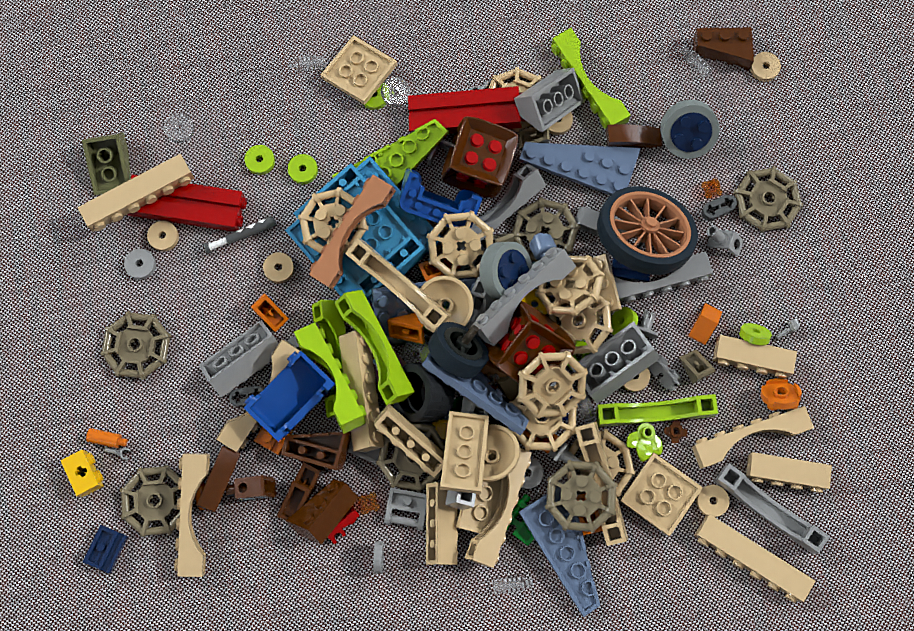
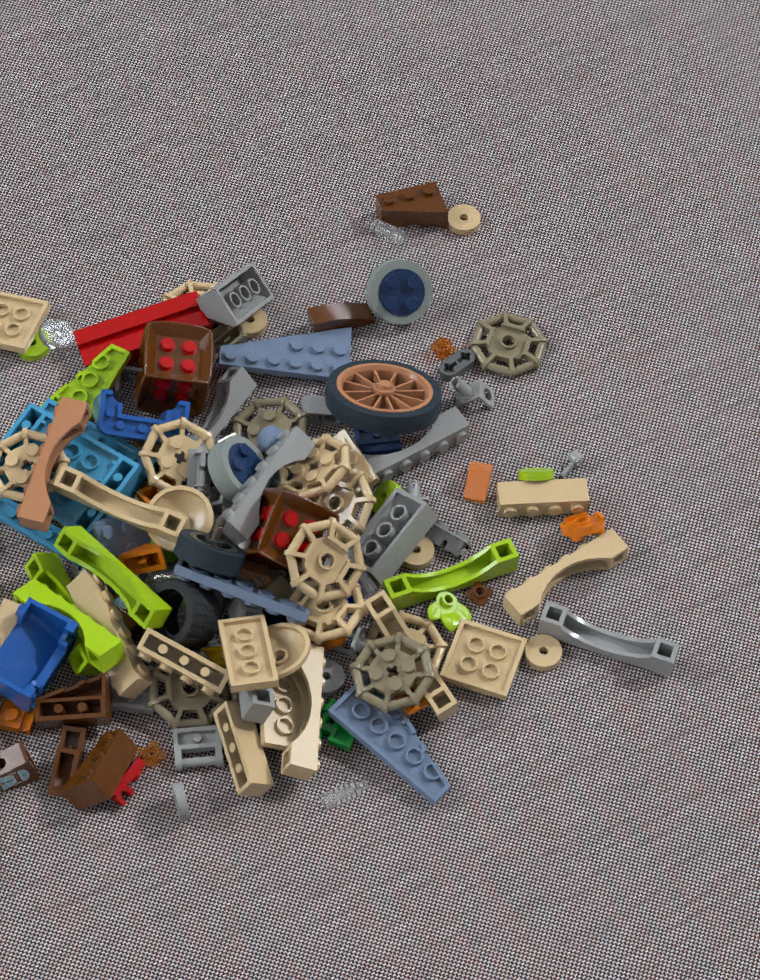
camera: 20 degrees left, 20 degrees down
(471, 264) = (198, 470): none -> light grey hinge
(609, 109) = (240, 250): lime arch -> none
(696, 366) = (483, 524): dark tan slope -> none
(754, 558) = (606, 694): tan brick -> none
(788, 471) = (617, 600): tan brick -> none

